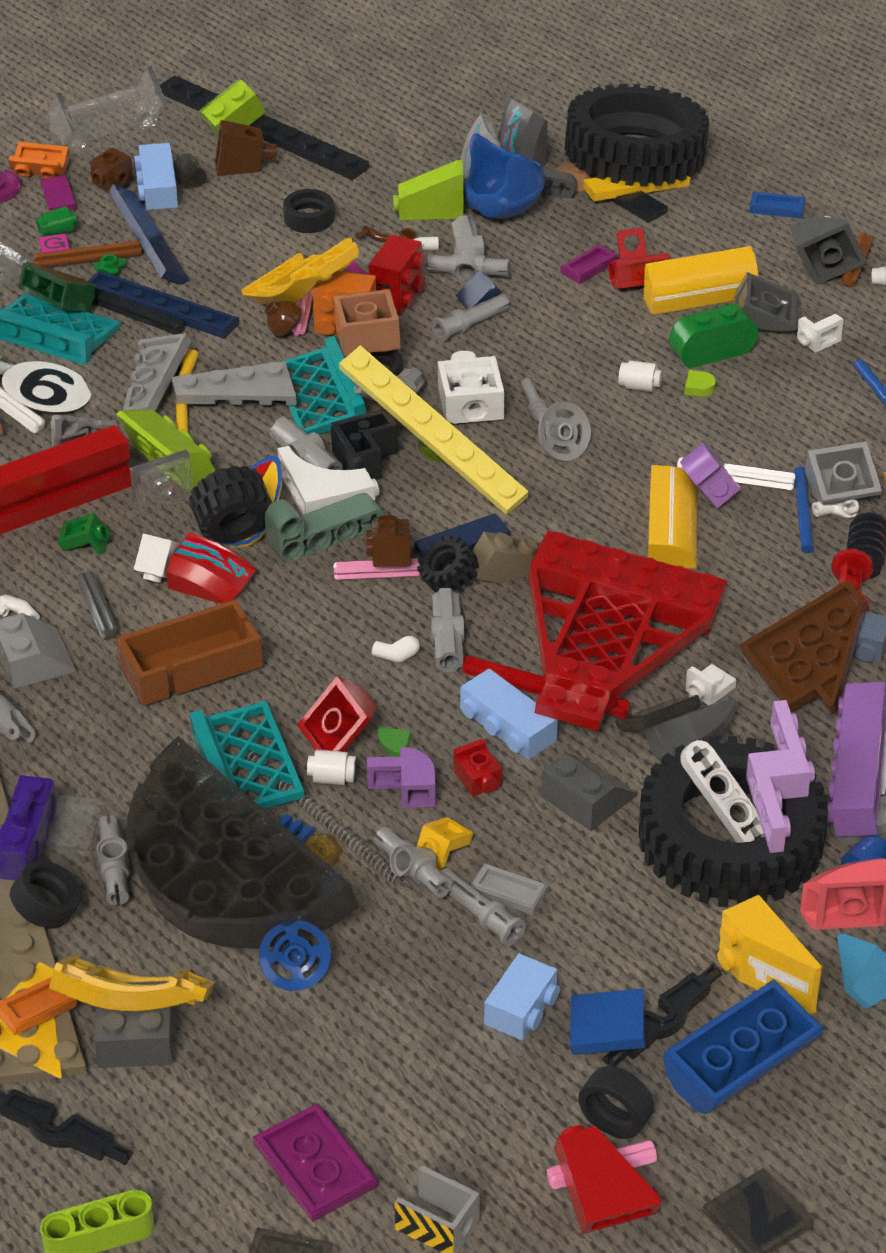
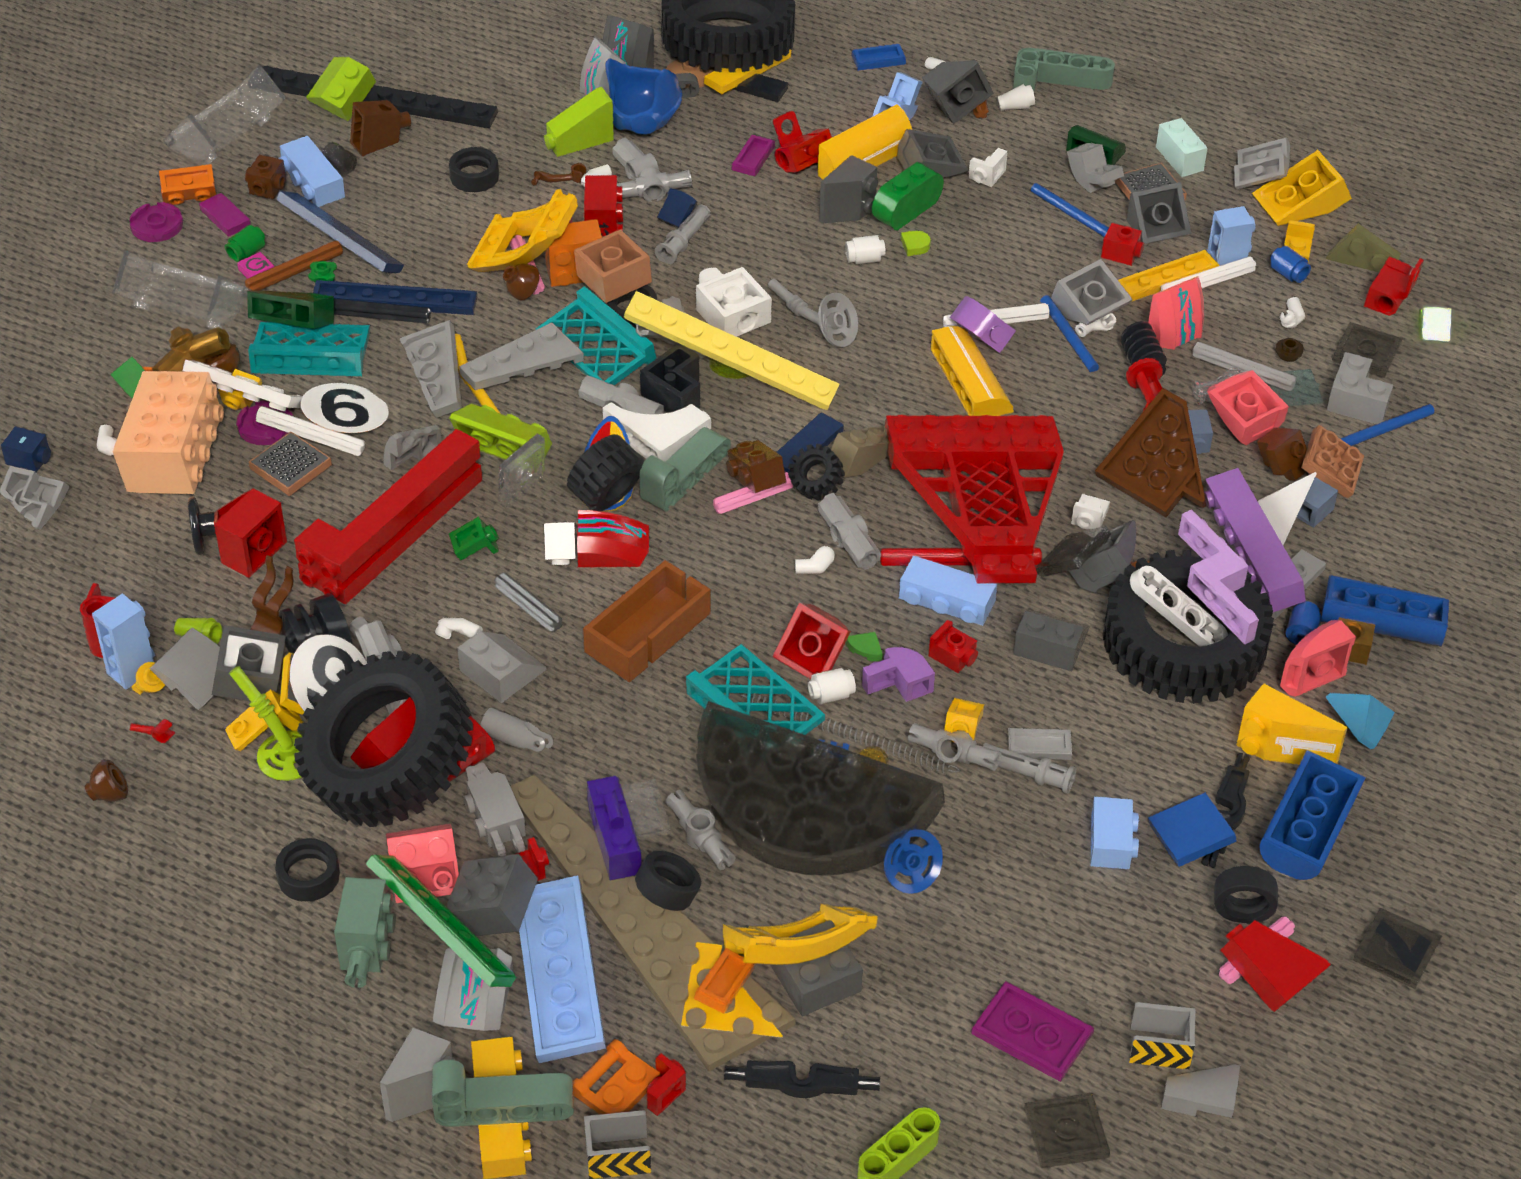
camera: 25 degrees left, 5 degrees up
(649, 315) = (848, 191): none -> dark grey slope
(768, 245) = (903, 92): none -> light blue brick

